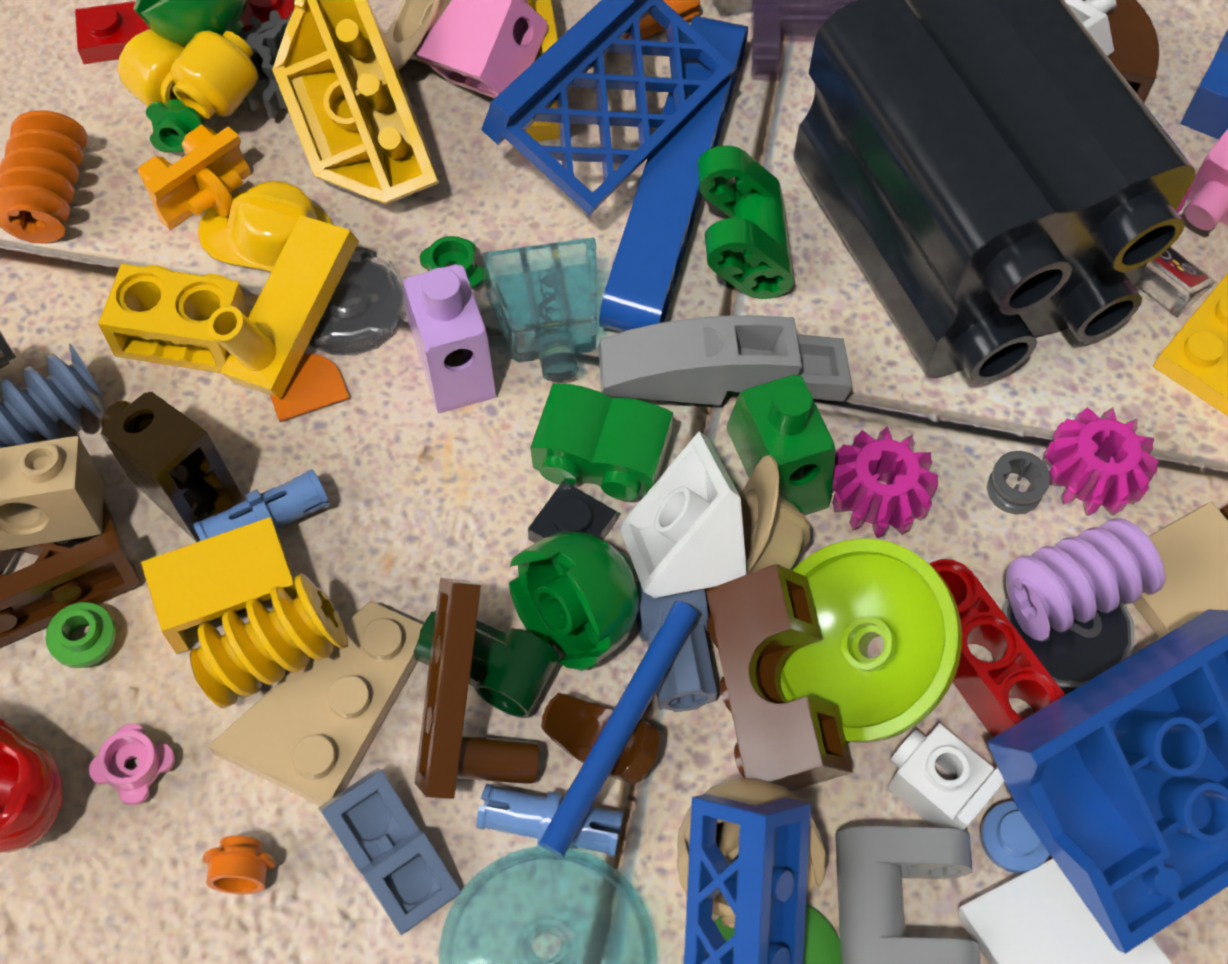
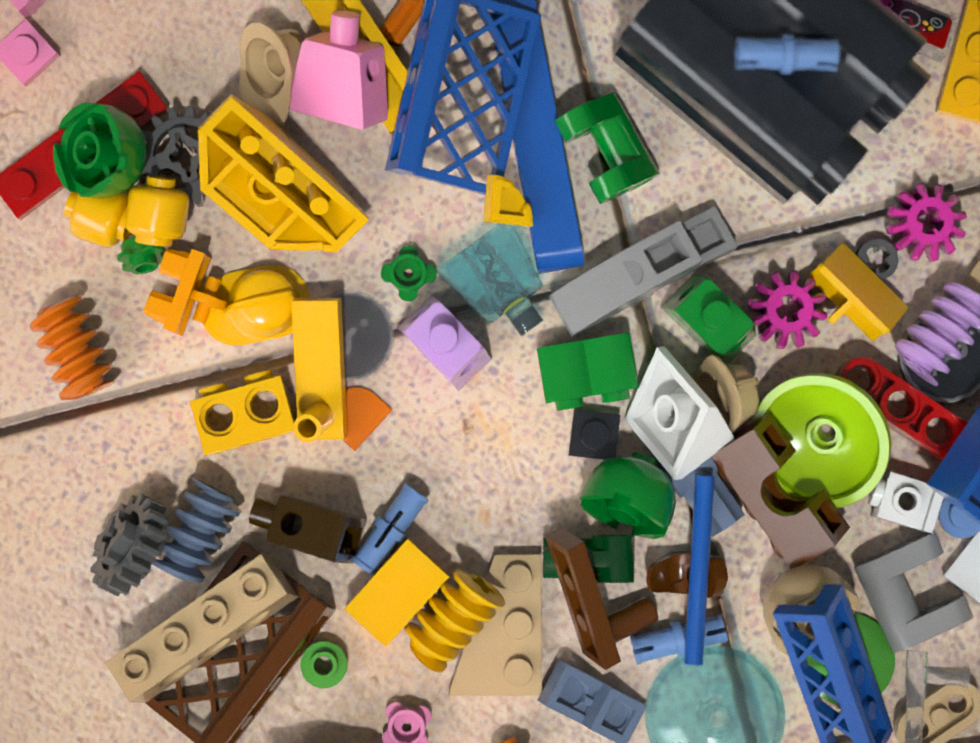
camera: 30 degrees left, 25 degrees up
(598, 214) = (505, 203): none -> yellow tile
(980, 499) = (858, 293): none -> yellow panel
(1013, 92) = (786, 54): none -> medium blue pin

